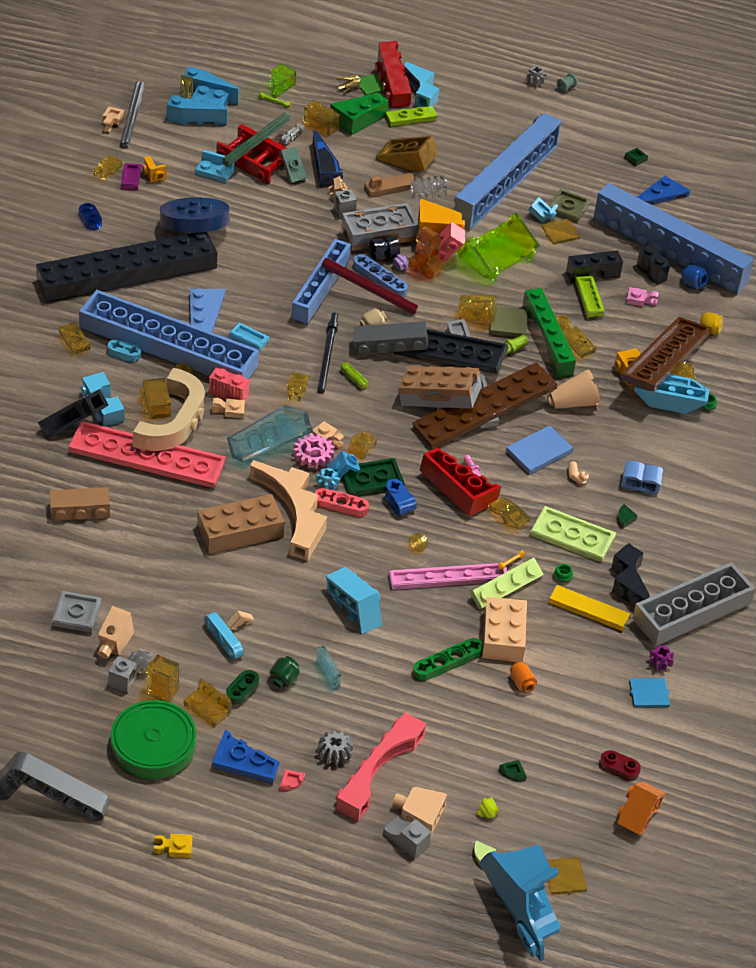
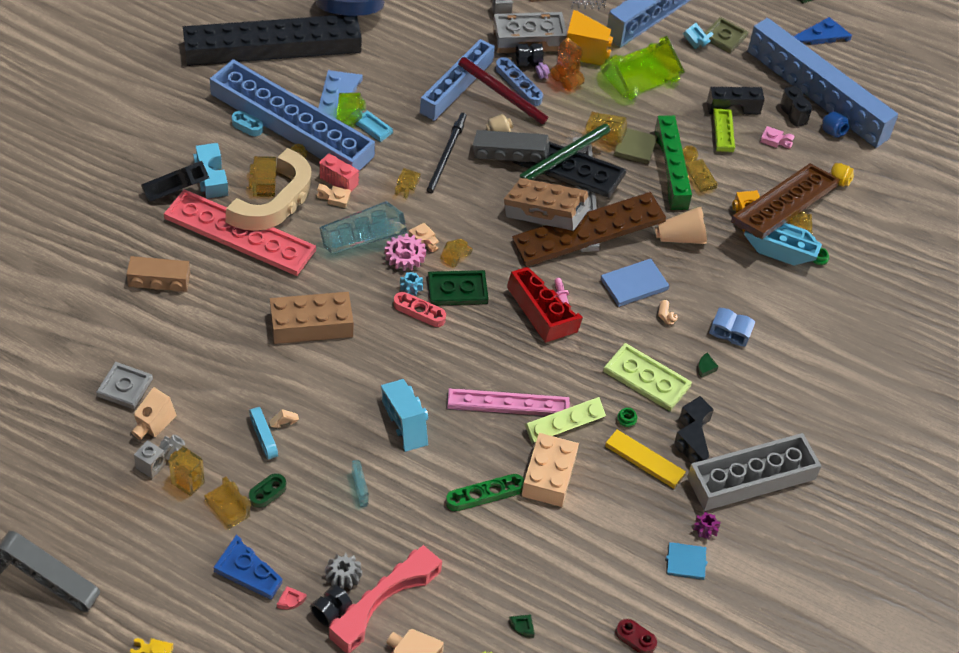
camera: 10 degrees right, 5 degrees up
(74, 338) = (202, 104): clear yellow plate -> none
(153, 739) = (161, 533): green brick -> none
(224, 320) = (350, 108): none -> clear neon green slope
(284, 672) = (313, 481): dark green head -> none
(292, 488) = (373, 288): light nougat arch -> none
(332, 778) = (331, 605): none -> black wheel
(343, 463) = (430, 269): dark azure bracket -> none
(354, 375) = (466, 179): lime axle -> none
(399, 497) = (478, 313): blue piece -> none
(418, 542) = (486, 362): clear yellow plate -> none
(446, 336) = (566, 152): none -> dark green axle
(451, 240) = (594, 56): coral brick -> none
(501, 565) = (588, 391): light orange hinge -> none
(511, 513) = (588, 345): clear yellow slope -> none
(516, 343) = (636, 169): lime pin -> none
(523, 677) = (557, 524): orange brick -> none
(561, 231) = (711, 60): clear yellow piece -> none

